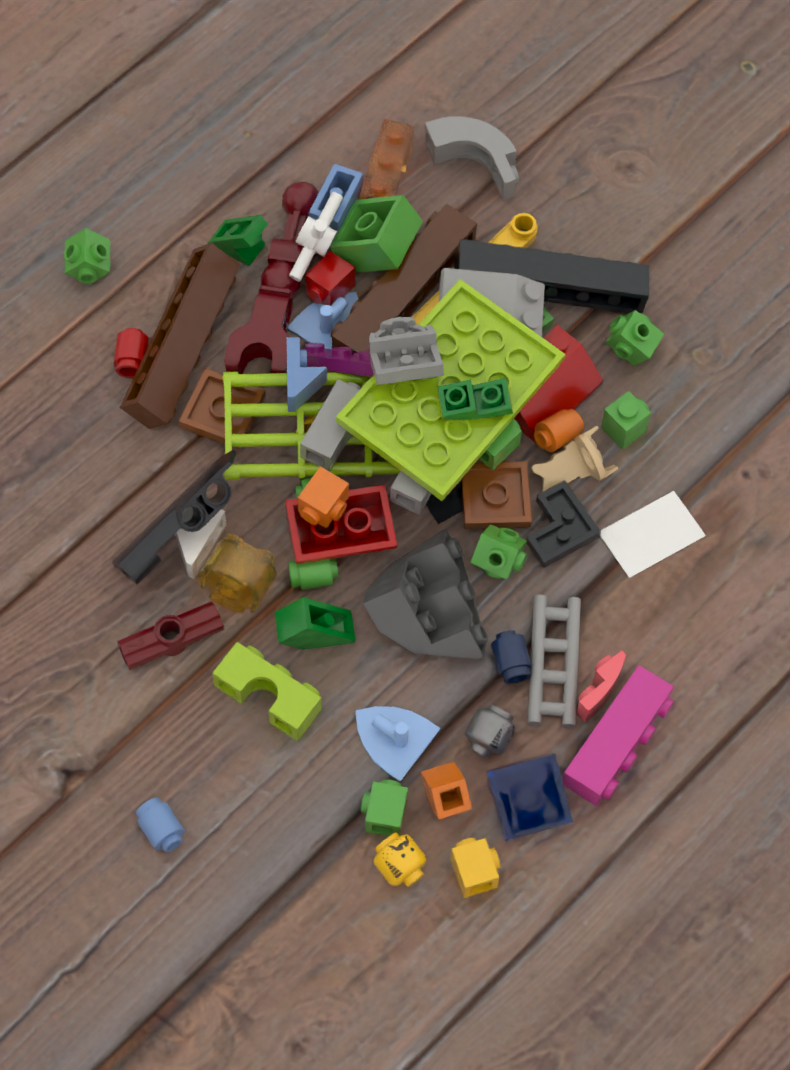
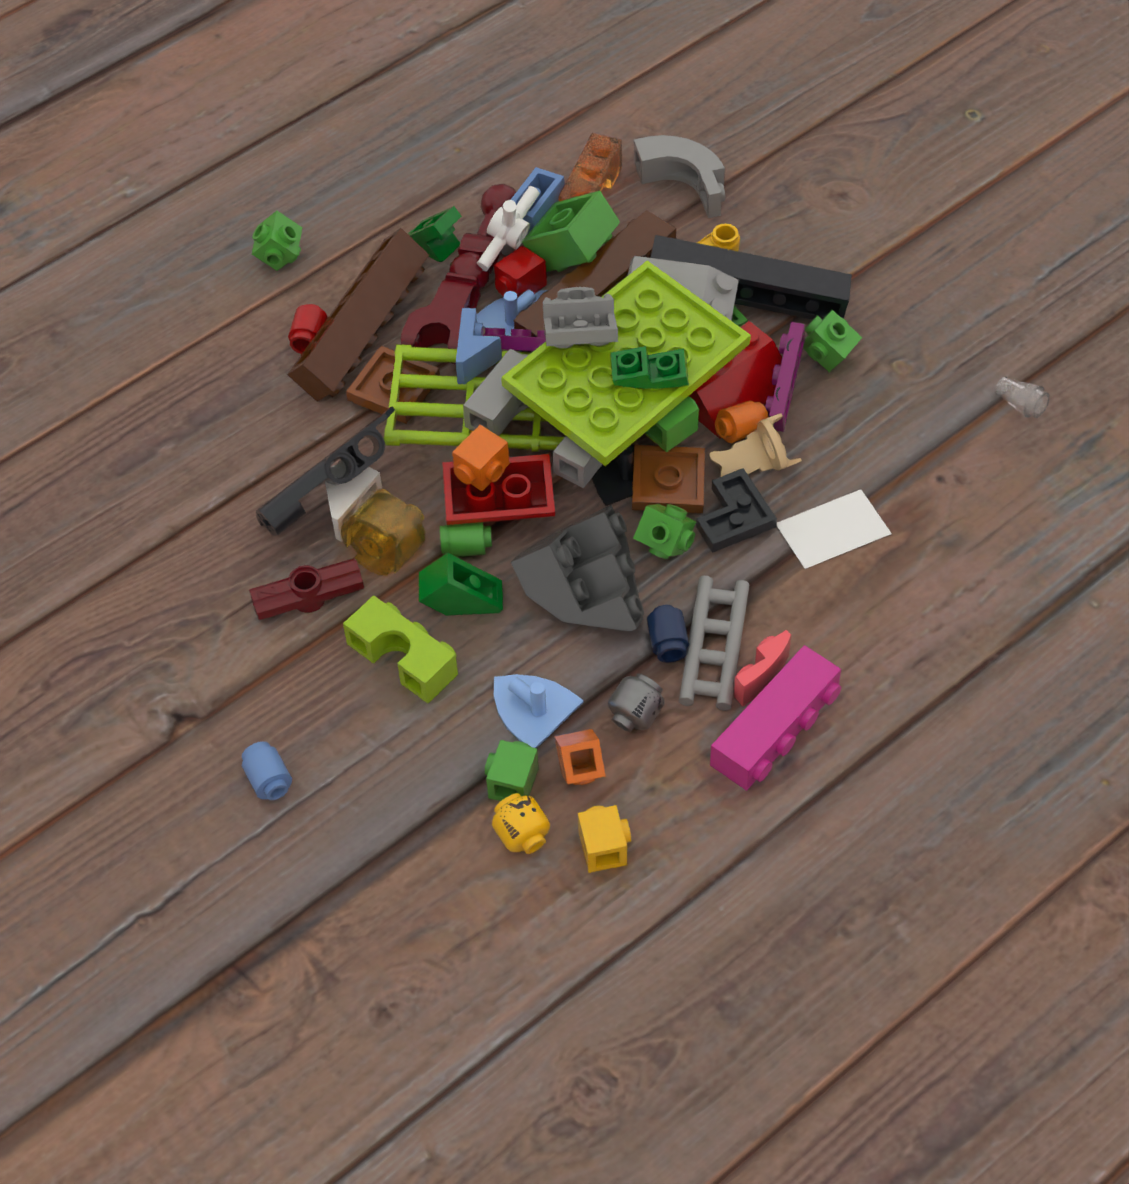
camera: 10 degrees right, 10 degrees down
(529, 796) = (670, 769): clear blue slope -> none
(595, 379) = (785, 375): none -> magenta plate
(626, 419) = (814, 415): bright green brick -> none

